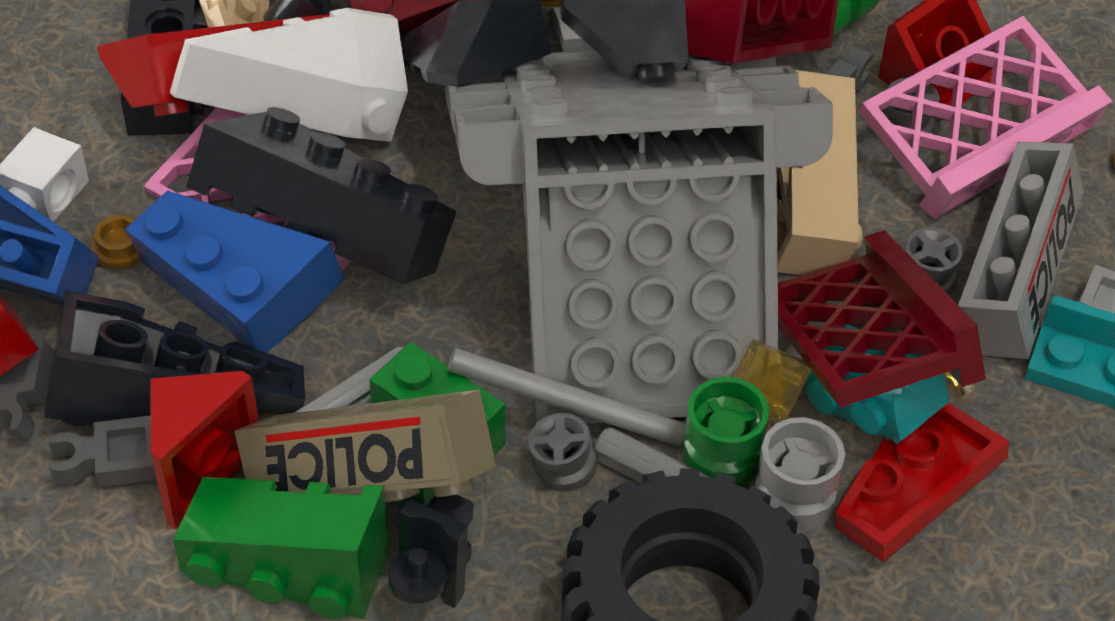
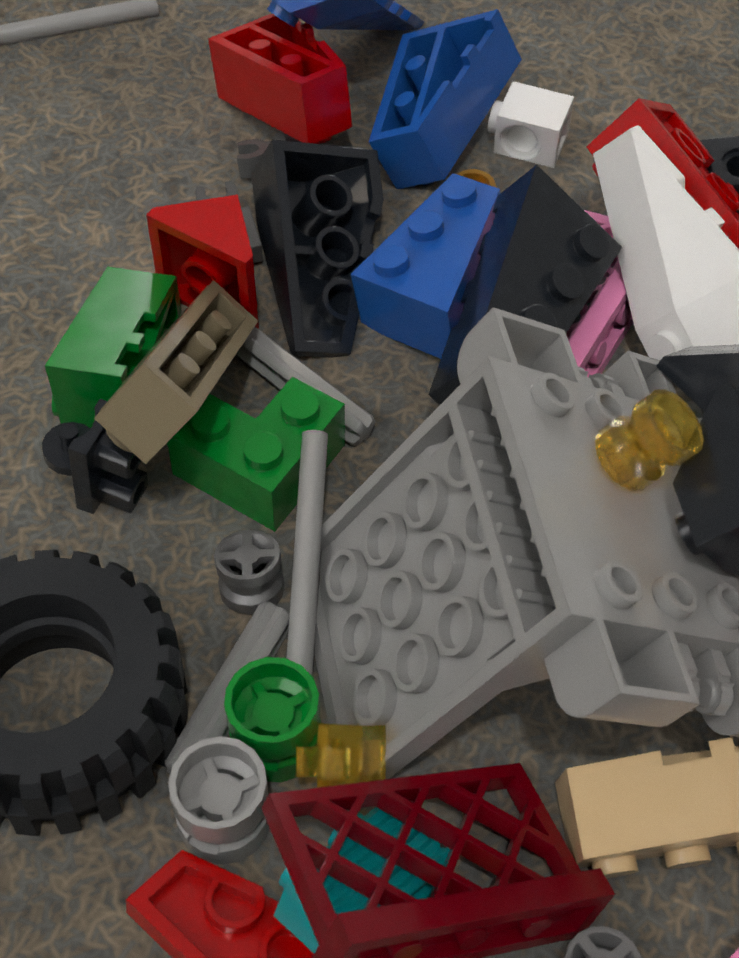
camera: 85 degrees right, 5 degrees up
(599, 61) = (655, 435): none -> clear yellow wheel

